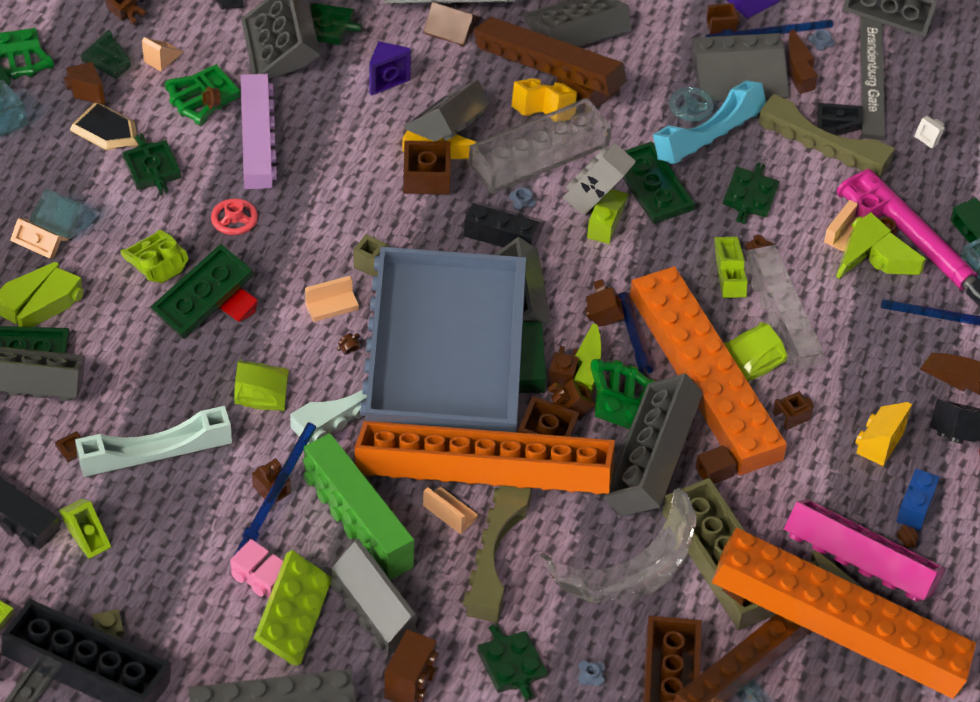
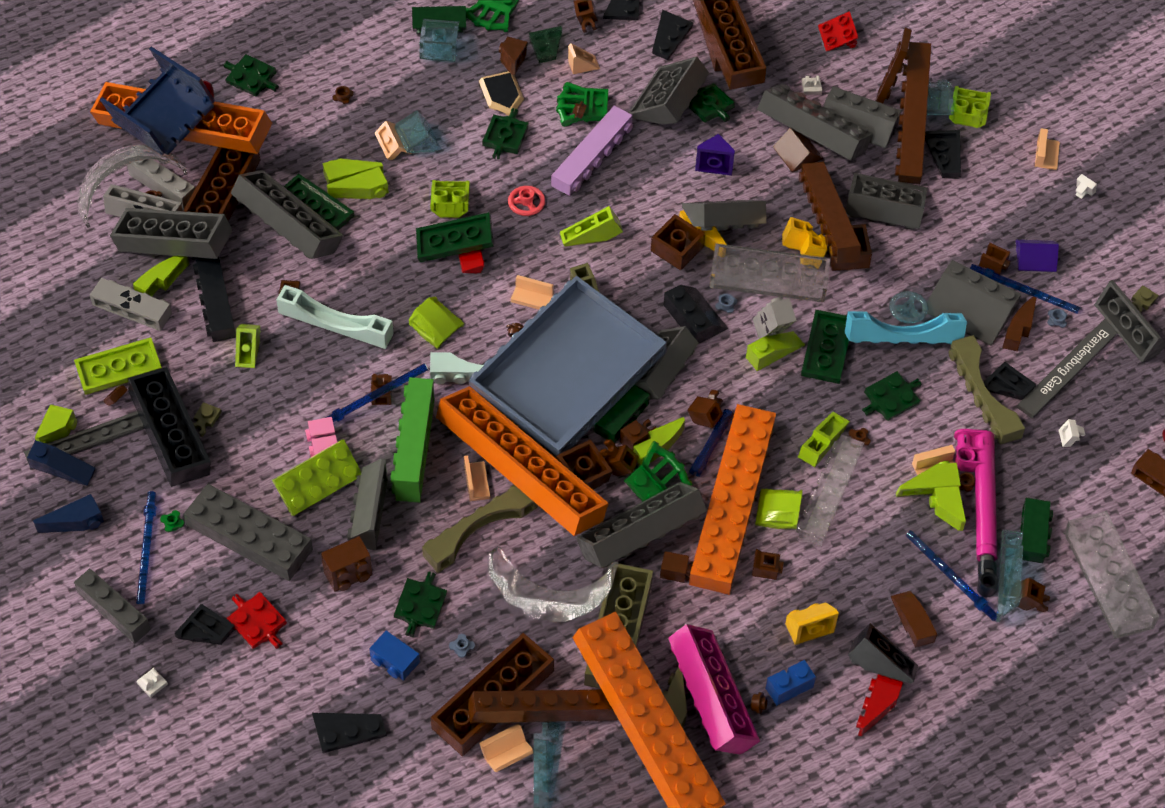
camera: 40 degrees right, 5 degrees up
(331, 203) = (593, 229): none -> lime slope

